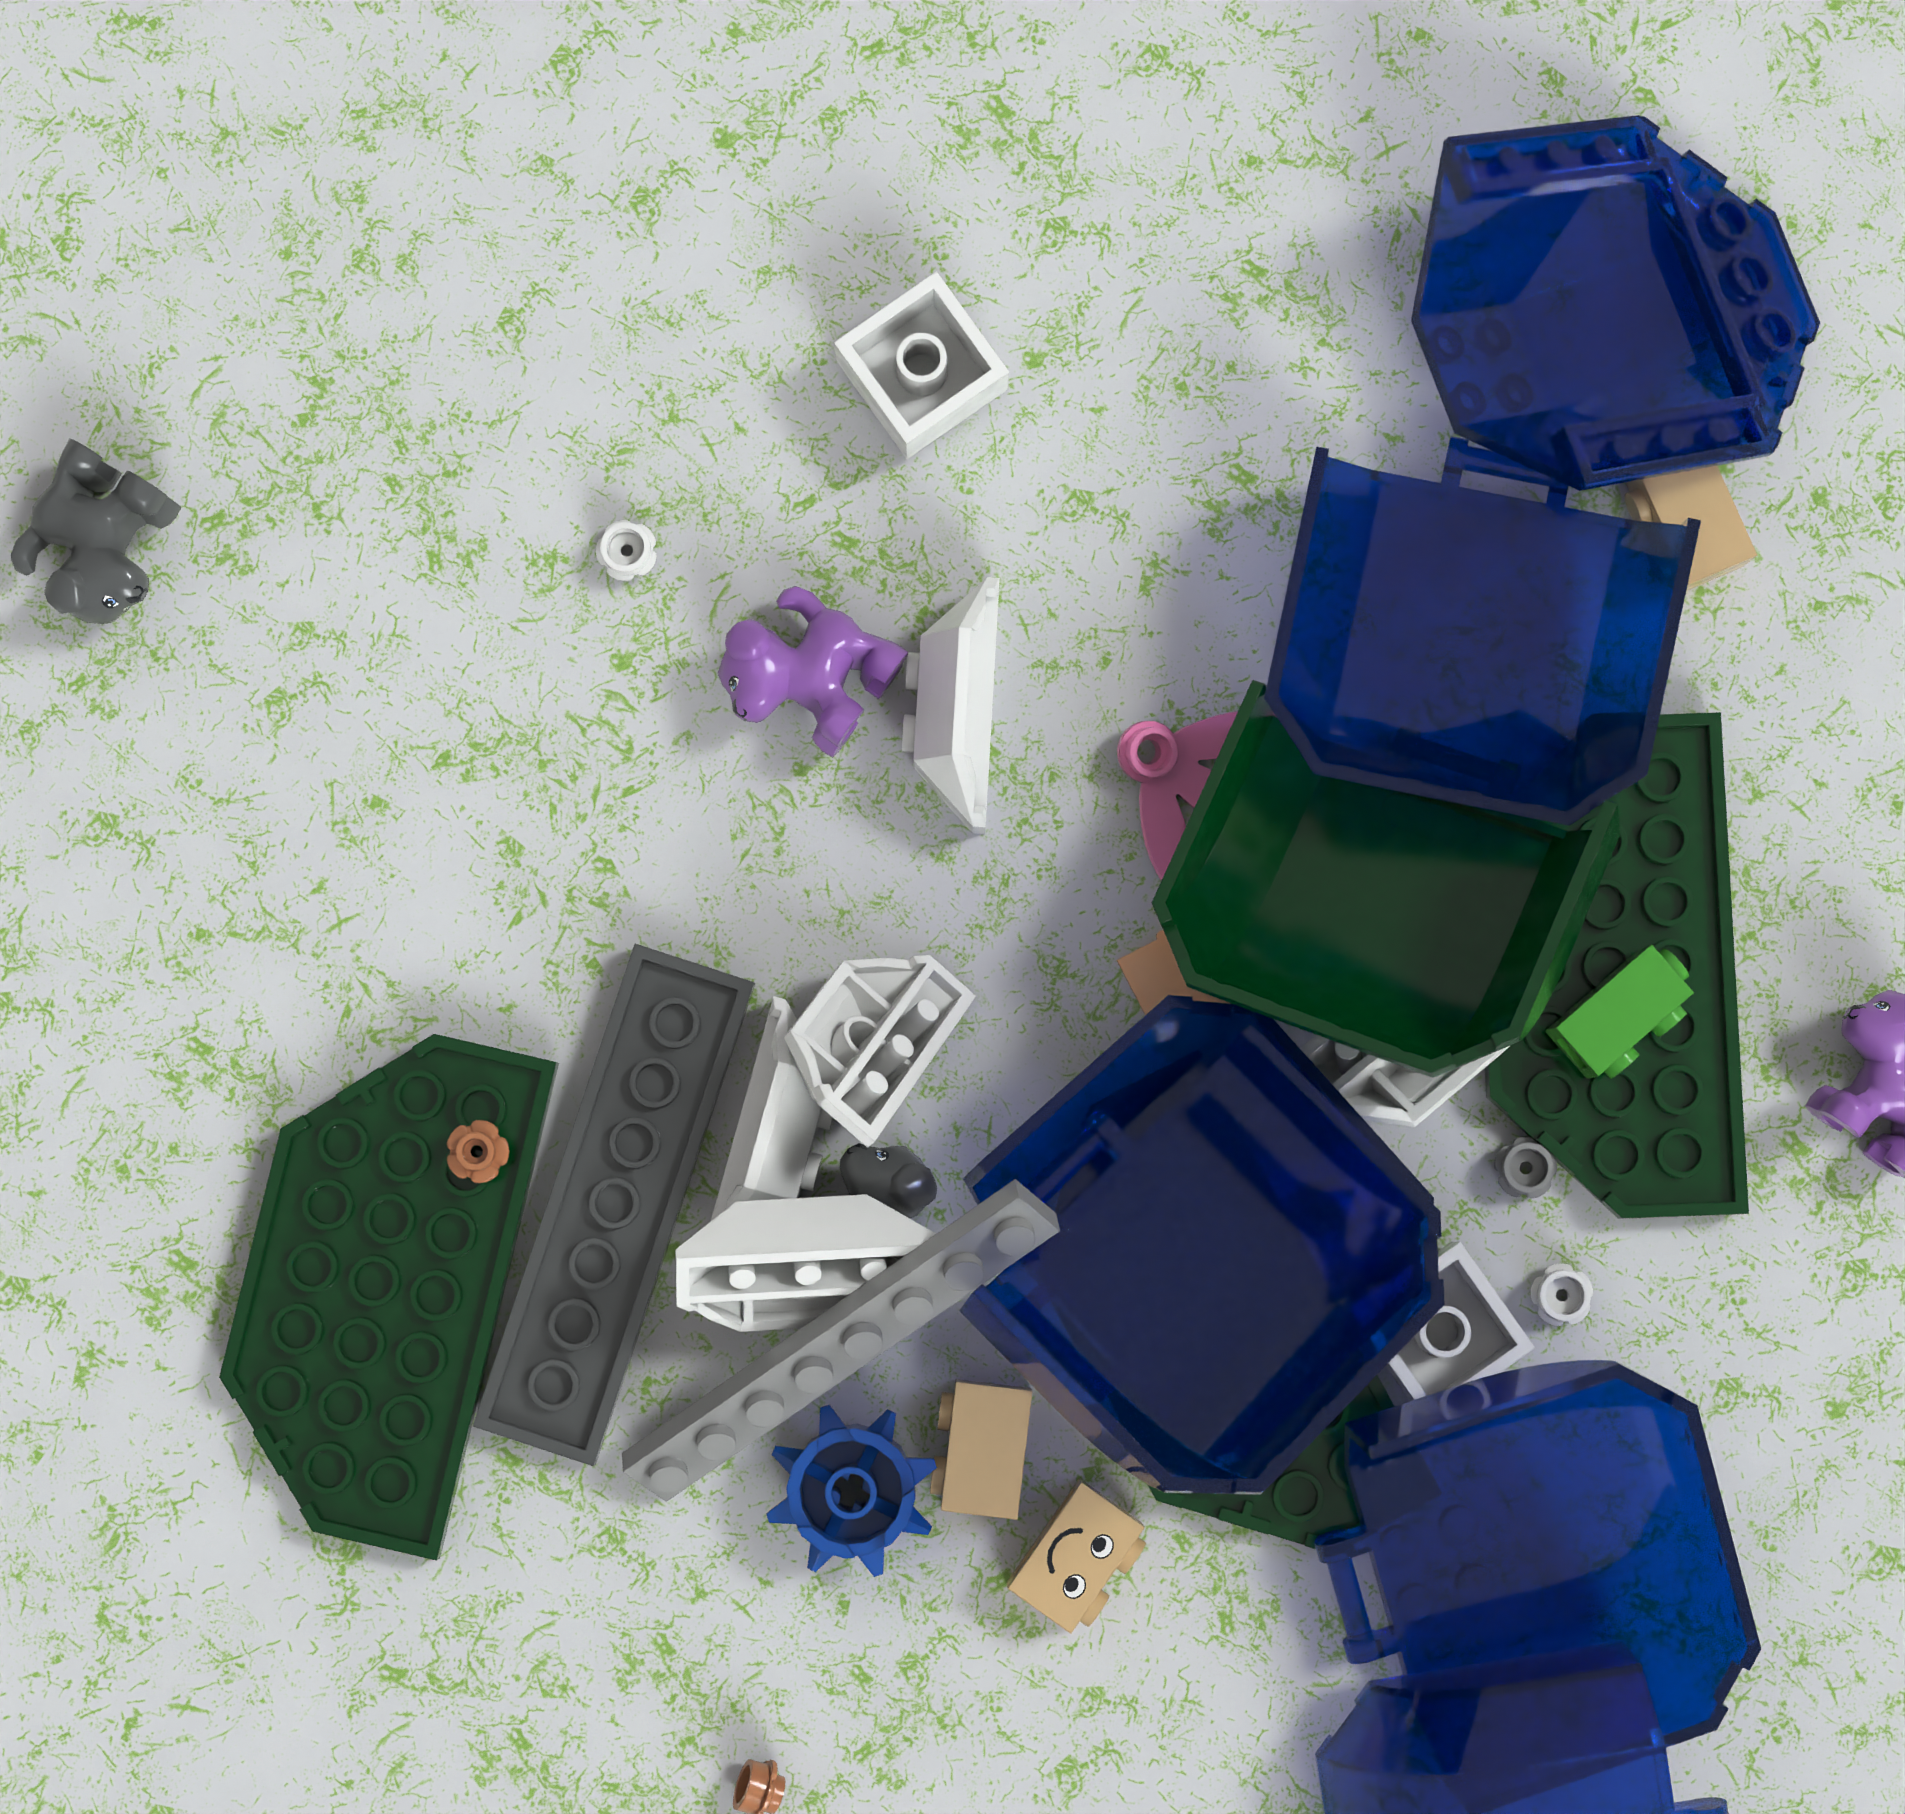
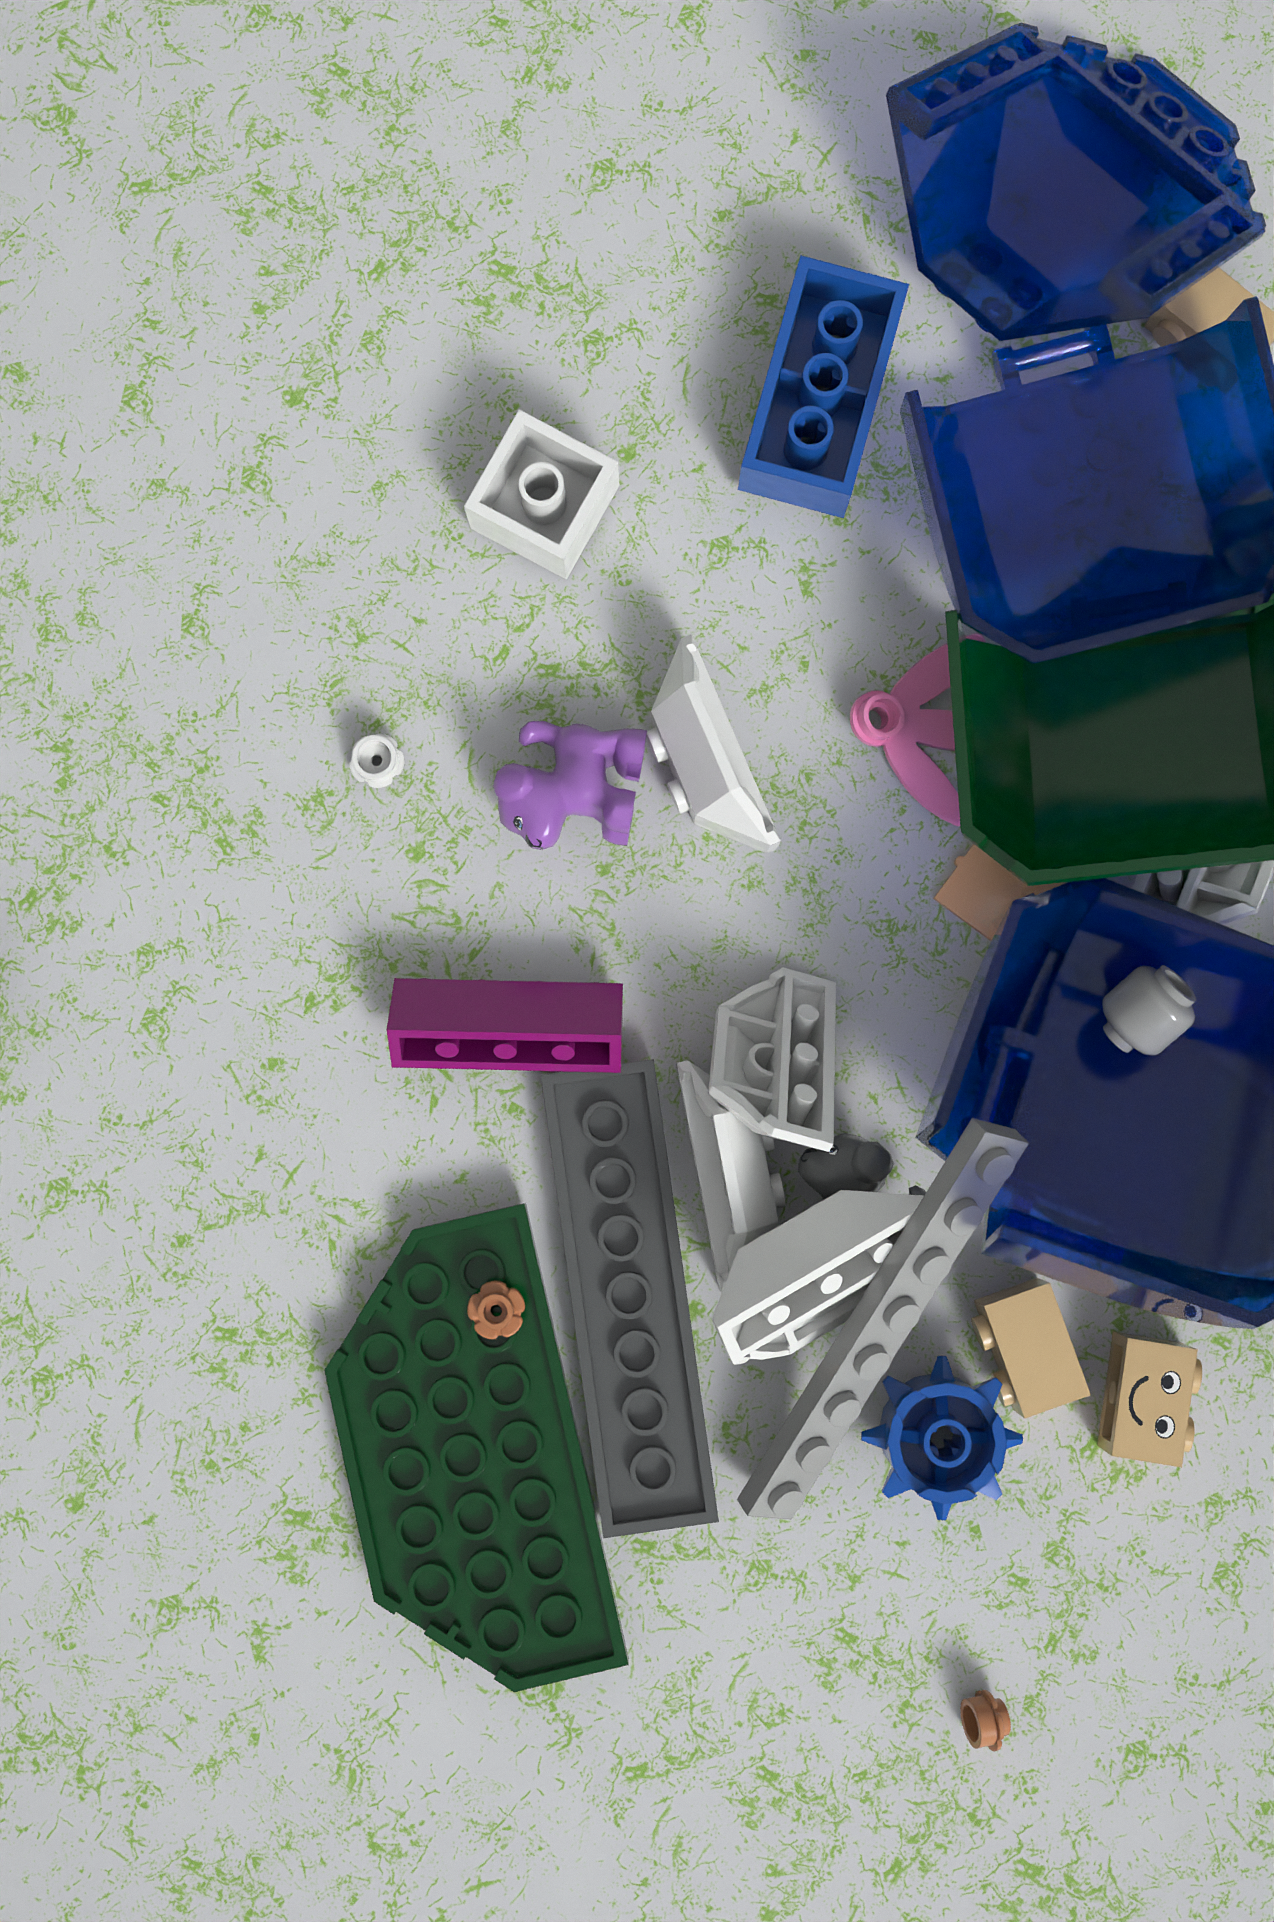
camera: 20 degrees left, 0 degrees up
(625, 877) = (506, 1025): none -> magenta brick
(1247, 1164) = (1148, 1010): none -> light grey head
(1252, 352) = (821, 304): none -> blue brick

